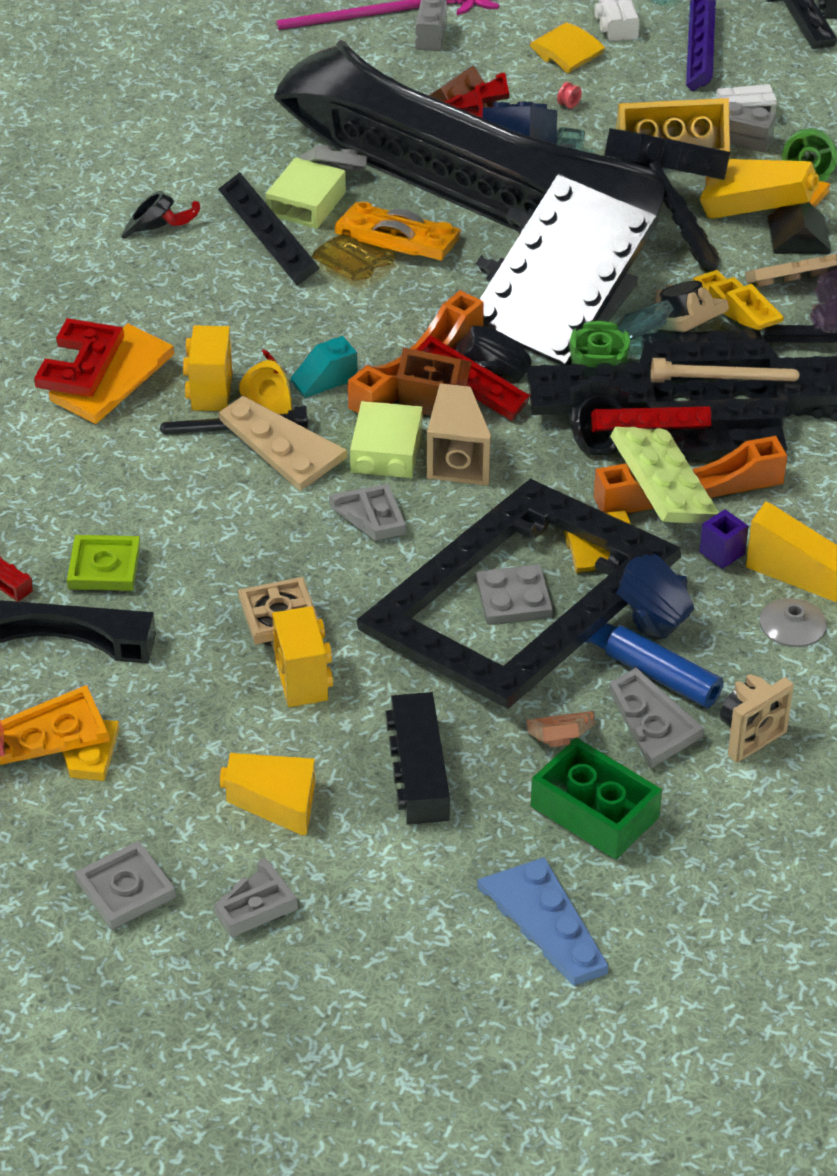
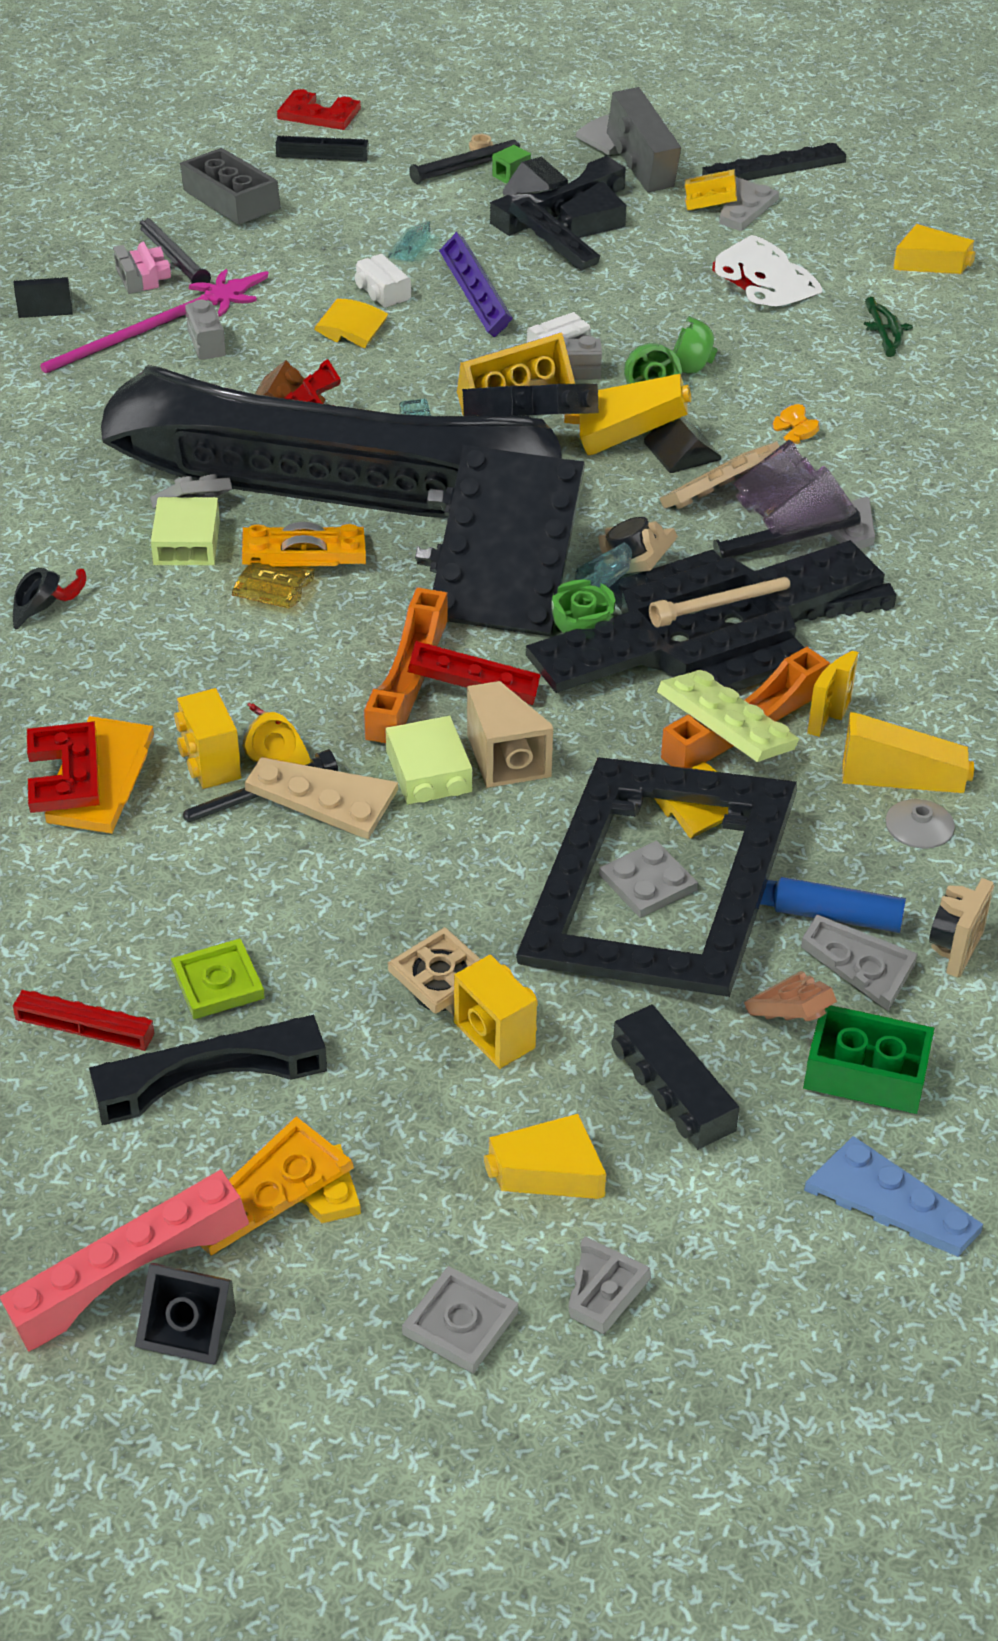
camera: 25 degrees left, 0 degrees up
(269, 229) = (170, 578): black plate -> none
(326, 367) = (322, 703): teal slope -> none
(371, 511) = (458, 837): light grey wing -> none
(423, 372) = (442, 686): dark orange slope -> none
(495, 351) = (479, 640): black hair -> none
(525, 118) = (376, 397): dark blue brick -> none
(569, 95) = (385, 368): coral bush -> none
(593, 394) = (628, 674): black hair -> none
(652, 418) = (683, 663): red piece -> none
(655, 596) = (801, 837): dark blue hair -> none
(692, 233) = (592, 471): black sword -> none
(723, 538) = (816, 761): dark purple brick -> none
(744, 302) = (691, 527): yellow slope -> none
(777, 481) = (832, 692): none -> yellow slope

